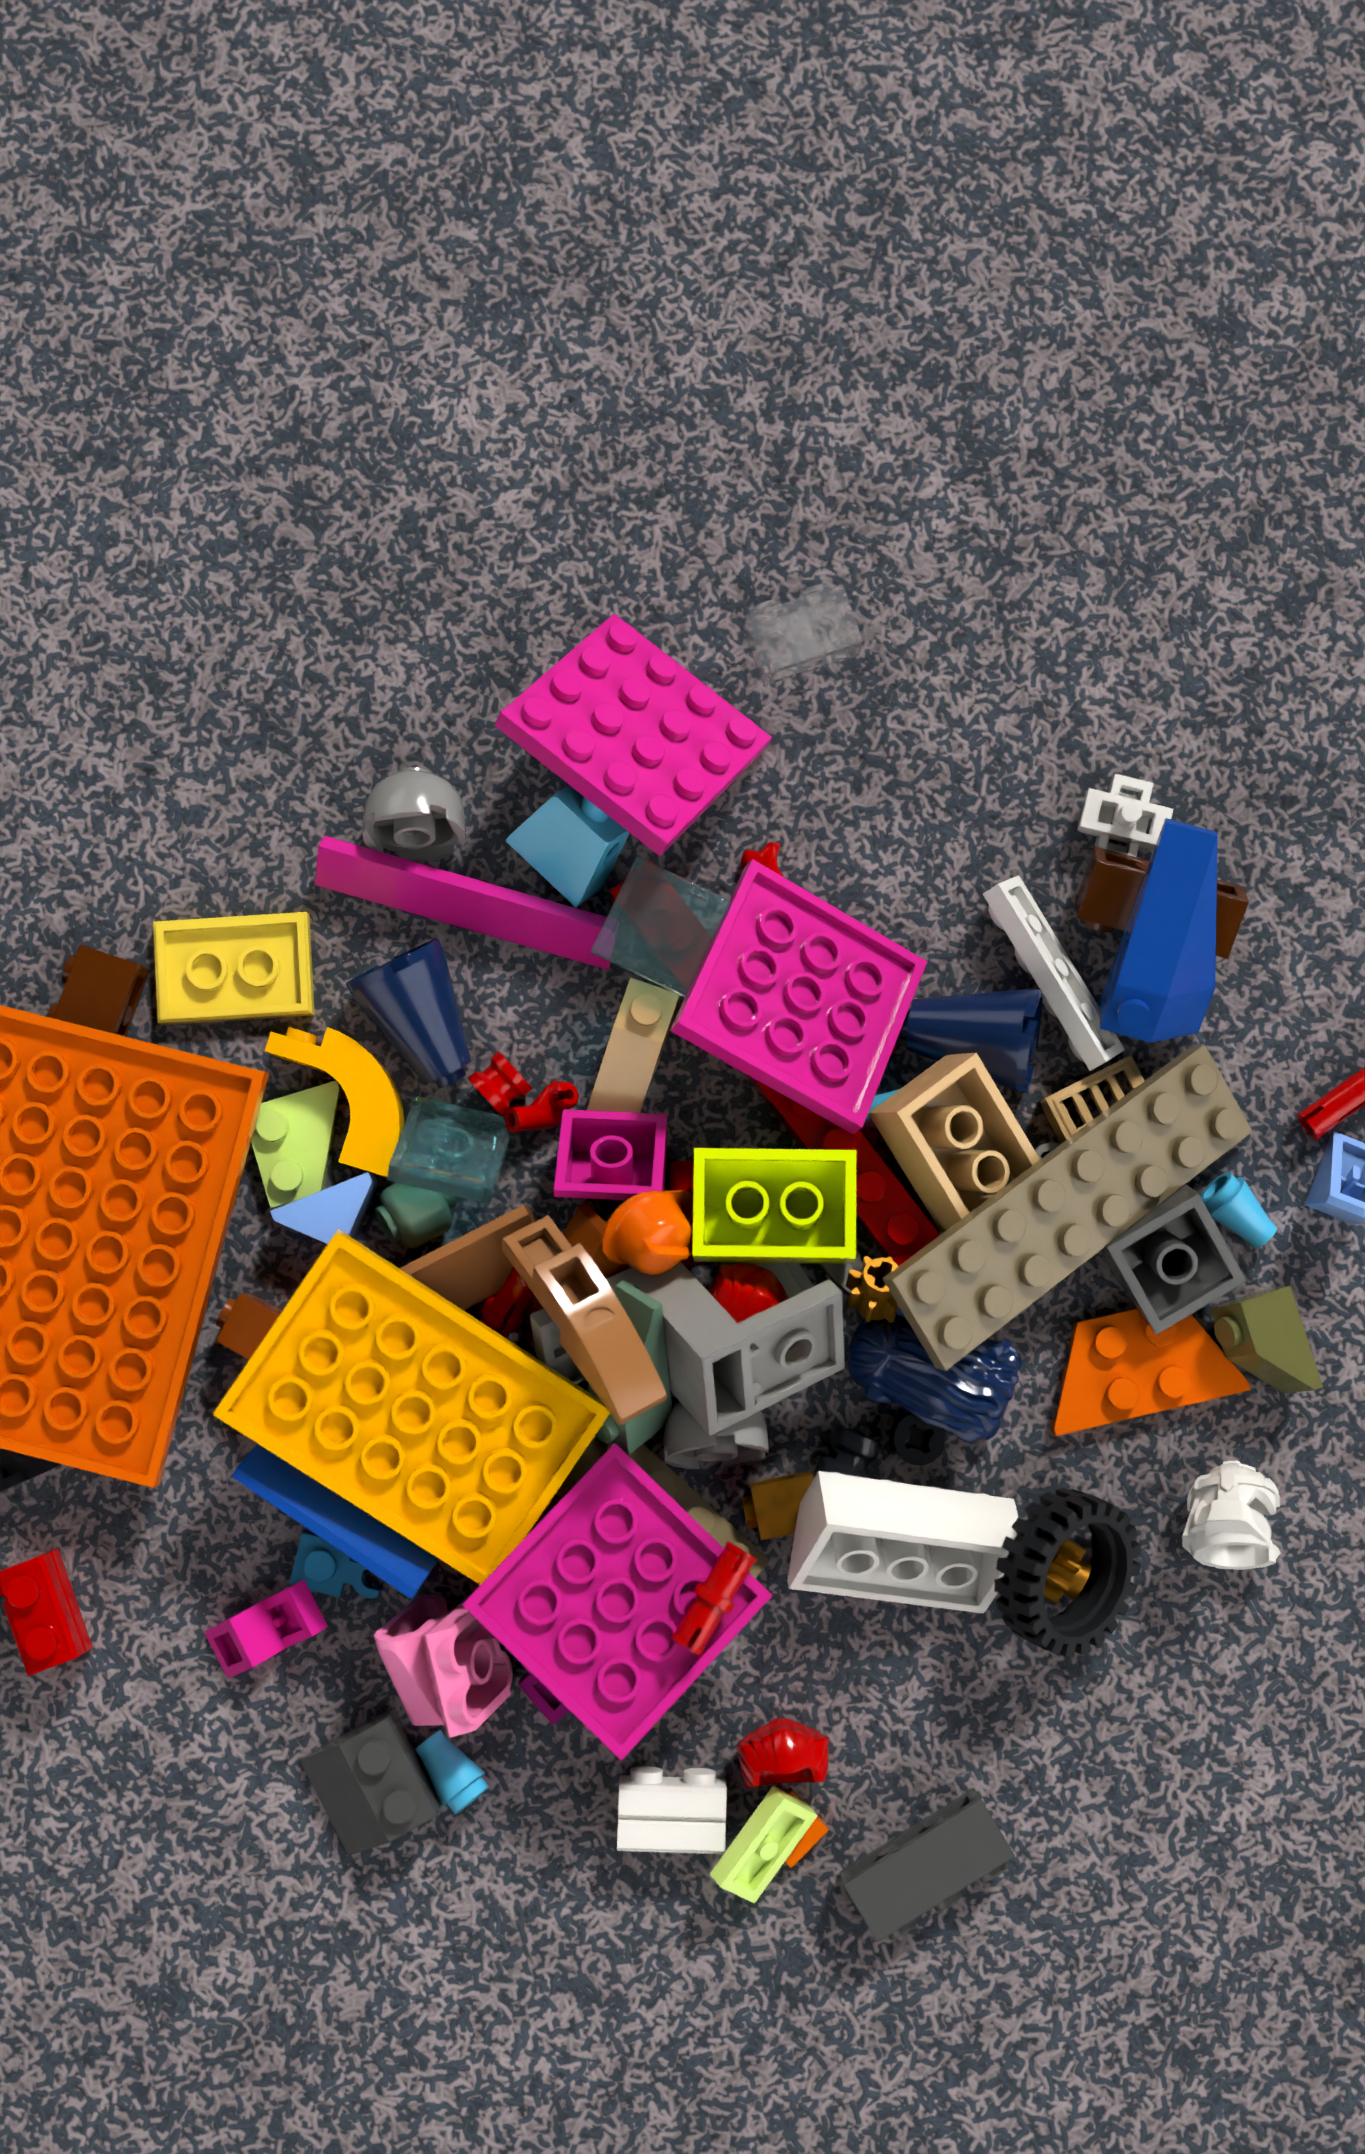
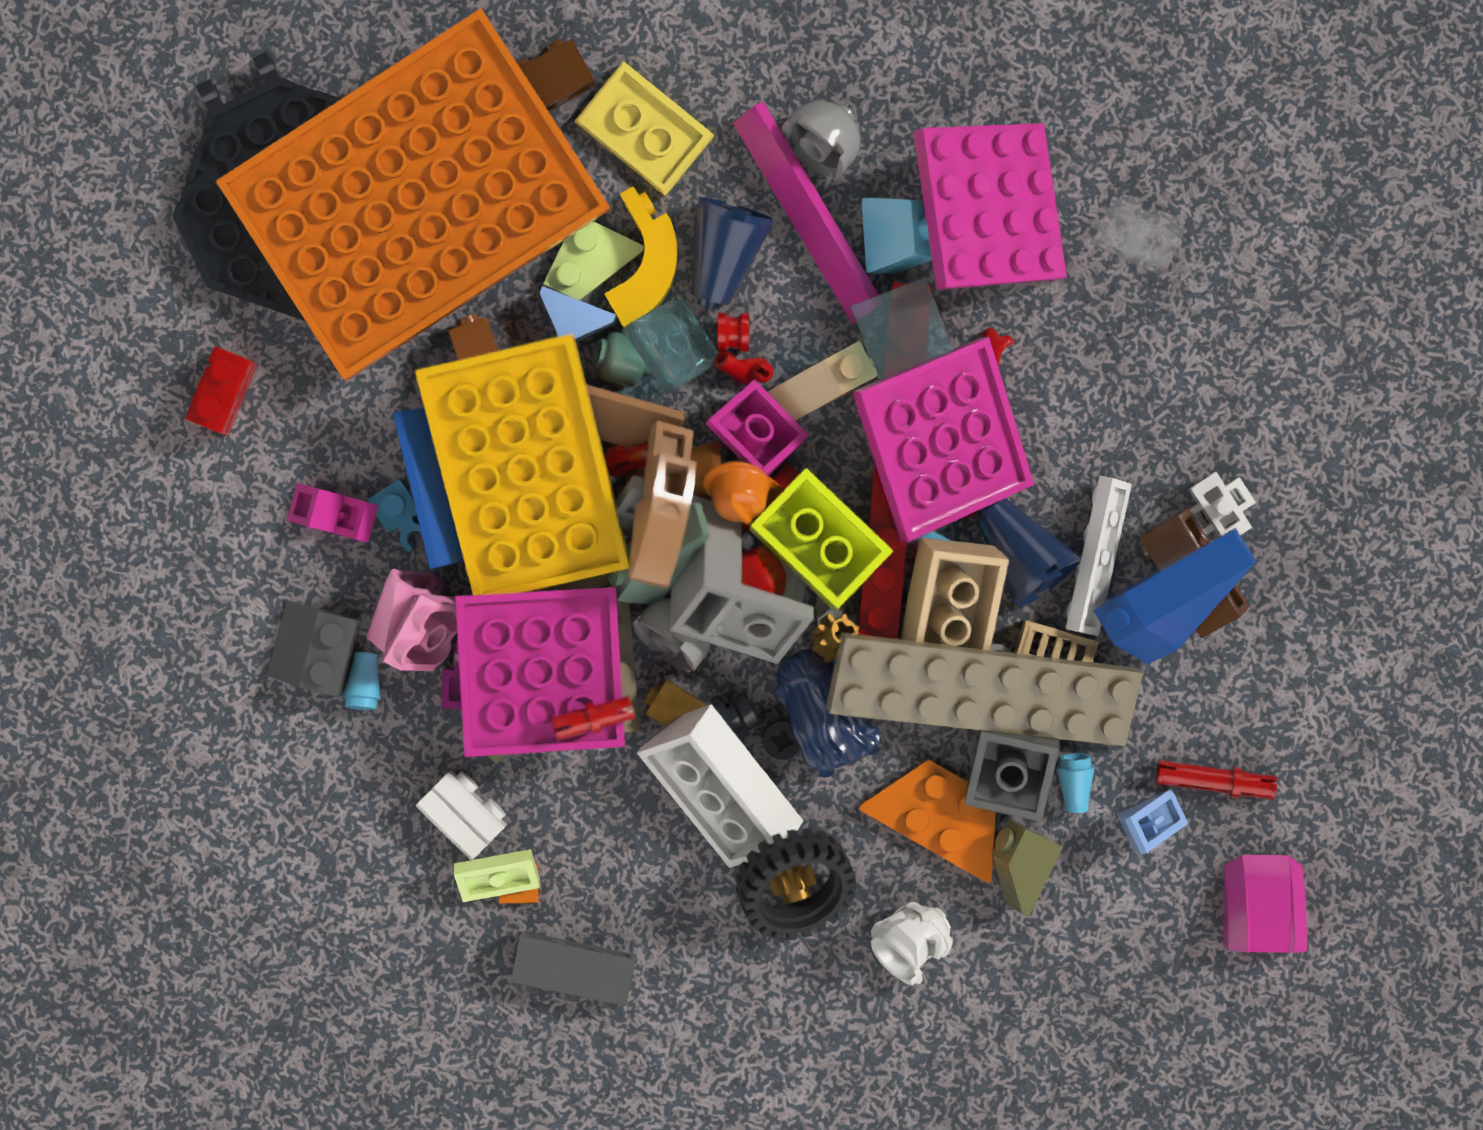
camera: 45 degrees right, 5 degrees up
(783, 1754) = (550, 840): red hair -> none

